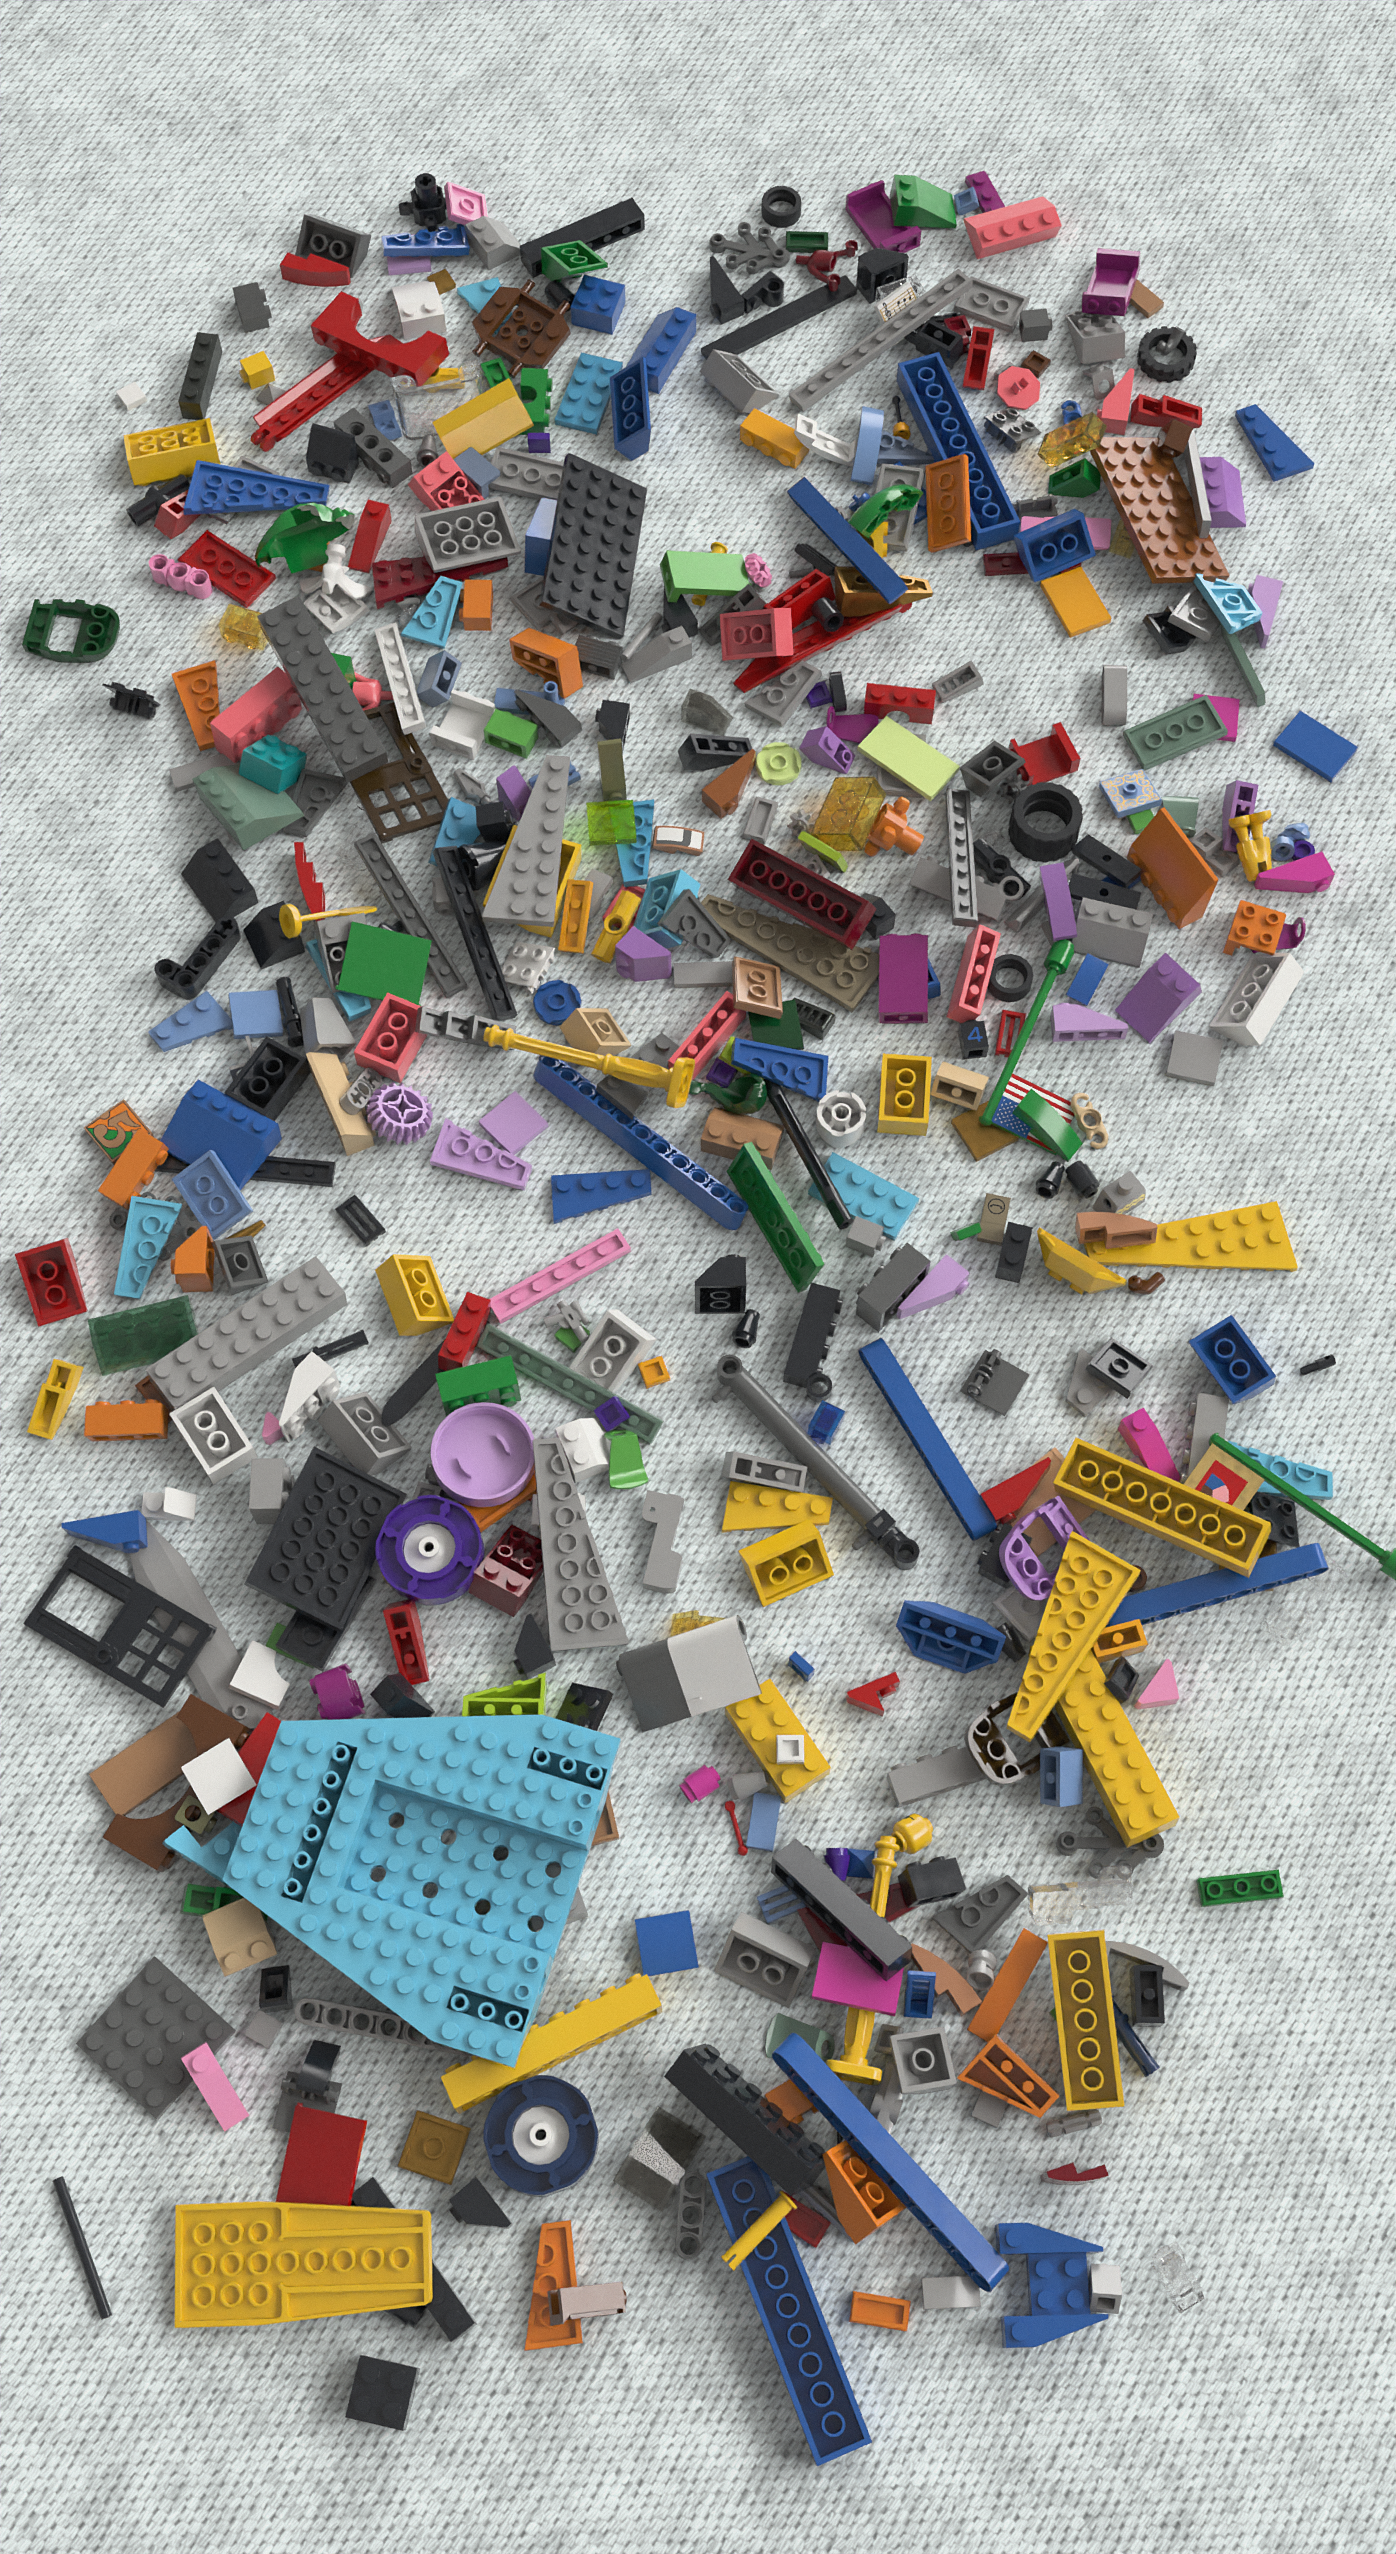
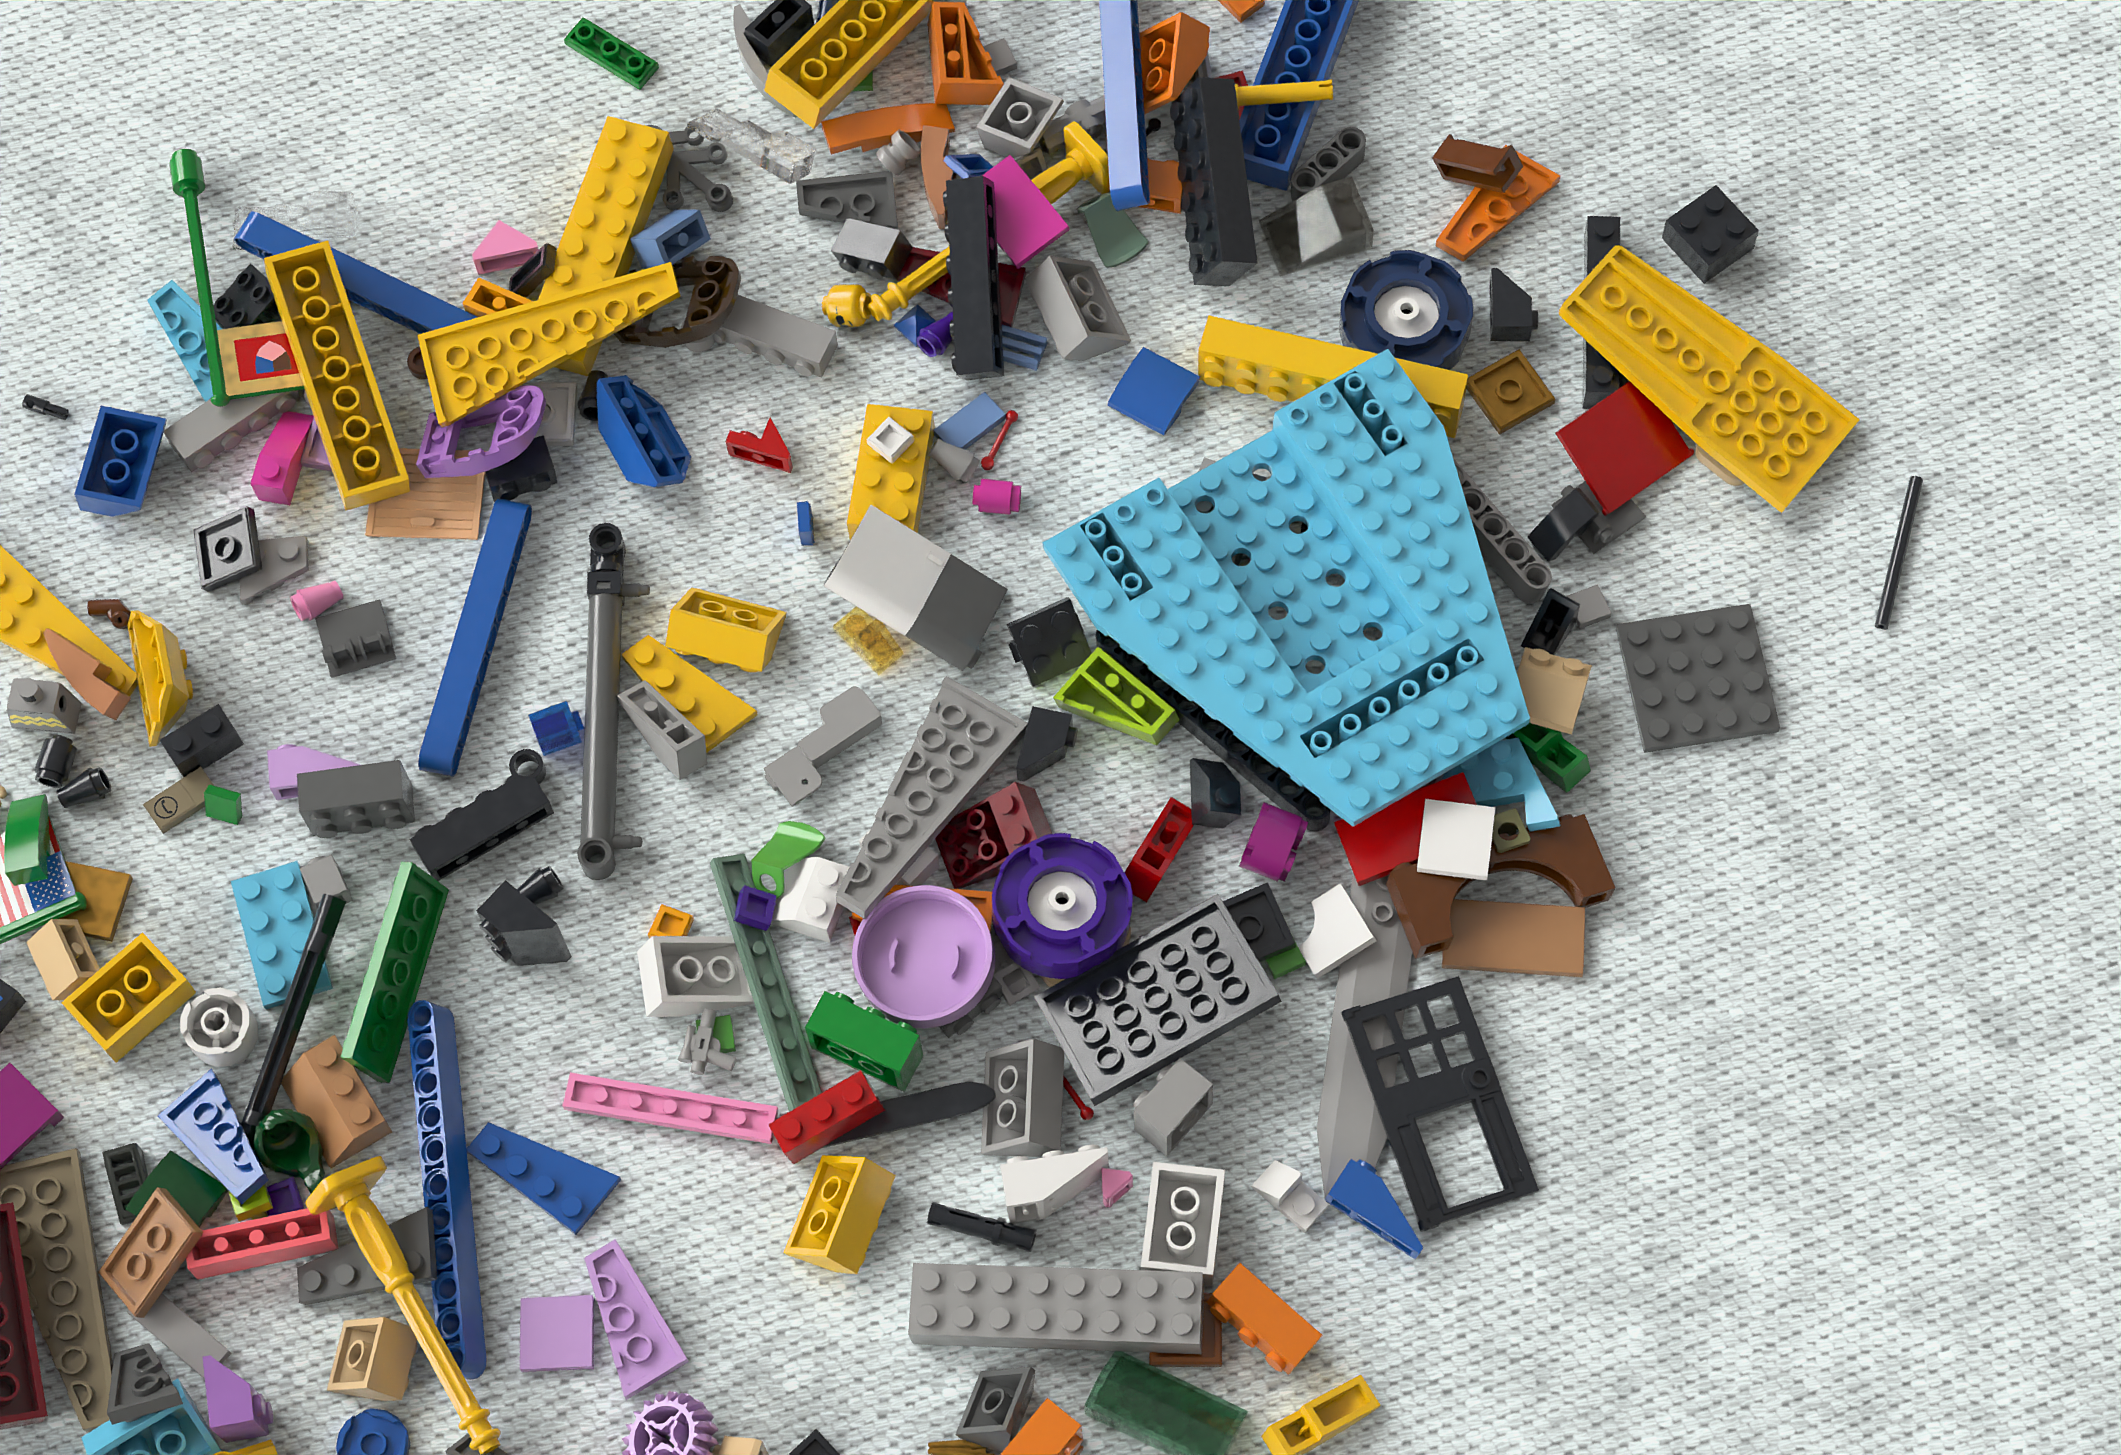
camera: 135 degrees left, 0 degrees up
(214, 2086) = (1673, 588): bright pink slope -> none
(372, 1235) = (820, 1389): black tile -> none
(1011, 1495) = (450, 512): red slope -> none
(1039, 1383) = (315, 600): none -> bright pink cone

